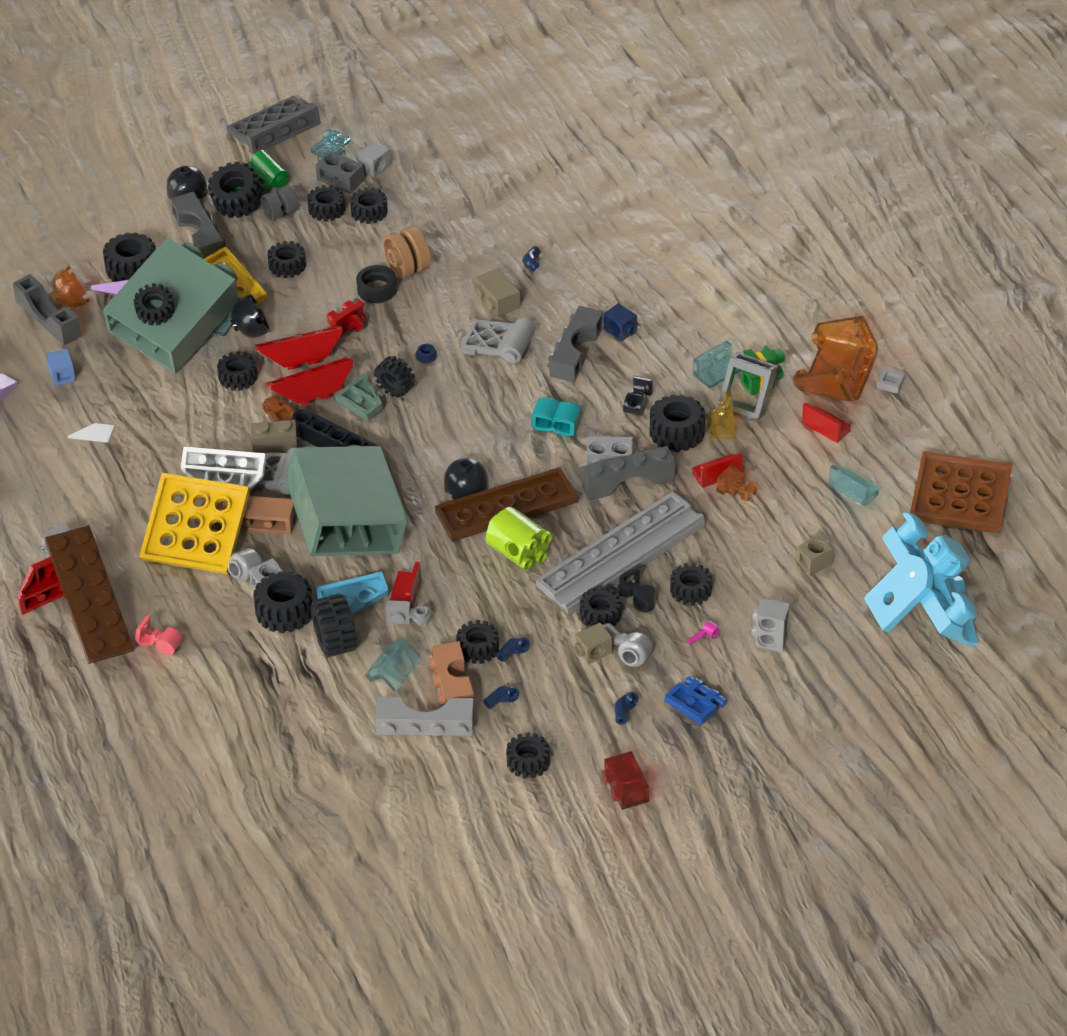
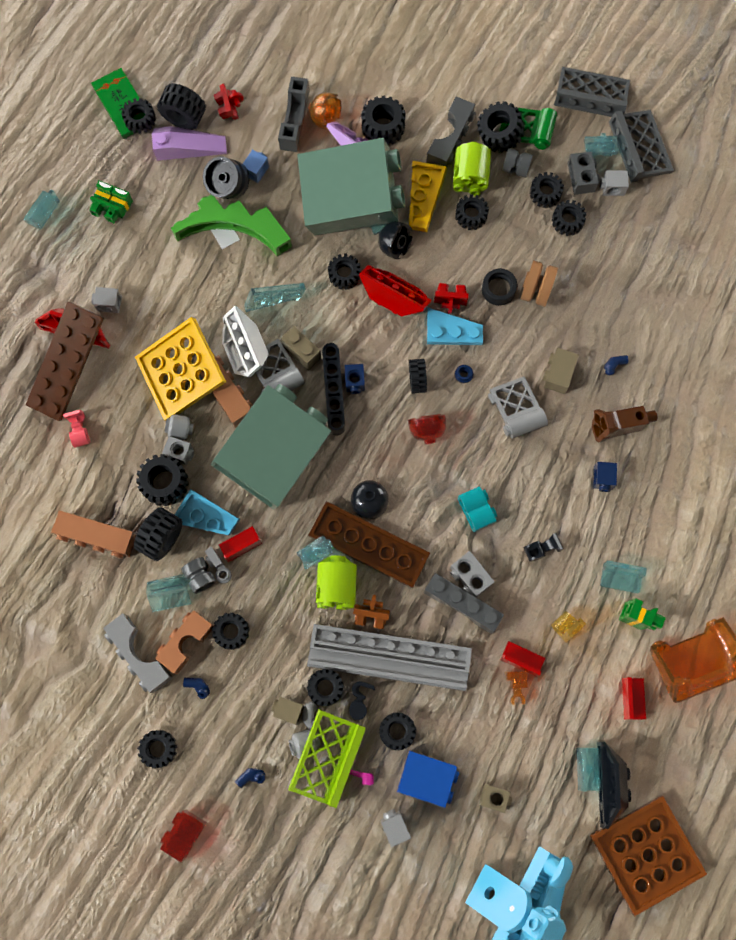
camera: 50 degrees right, 30 degrees up
(54, 397) = (226, 178): none -> black wheel
(94, 408) = (235, 217): none -> bright green arch
(158, 314) = (316, 174): black tyre -> none
(186, 180) = (483, 91): black cylinder -> none
(203, 423) = (273, 295): none -> clear light blue wing
(249, 229) = (472, 168): none -> lime cylinder
(275, 682) = (94, 534): none -> nougat brick
(276, 410) = (329, 332): dark orange plate -> none
(313, 383) = (368, 326): red wedge -> none
(346, 418) = (351, 371): none -> dark blue brick
(360, 133) = (628, 146): none -> dark grey fence
(360, 398) = (386, 368): sand green wing -> none
(376, 339) = (452, 330): none -> medium azure wing
(402, 628) = (199, 576): none -> dark grey wheel
(447, 399) = (428, 427): none -> clear red cylinder
(473, 535) = (315, 552): none -> clear light blue hips
(513, 646) = (246, 656): dark blue arm -> none
(567, 533) = (362, 612): none -> dark orange hips
(583, 327) = (579, 455): dark grey arch -> none
(584, 282) = (620, 422): none -> reddish brown piece
(674, 628) = (343, 764): none -> lime fence
(677, 422) = (554, 591): black tyre -> none
(693, 705) = (287, 822): blue plate -> none
(750, 583) = (428, 779): none -> blue panel
(756, 367) = (619, 612): window -> none
(881, 471) = (613, 785): none -> black wedge
(890, 380) = (716, 712): light grey plate -> none

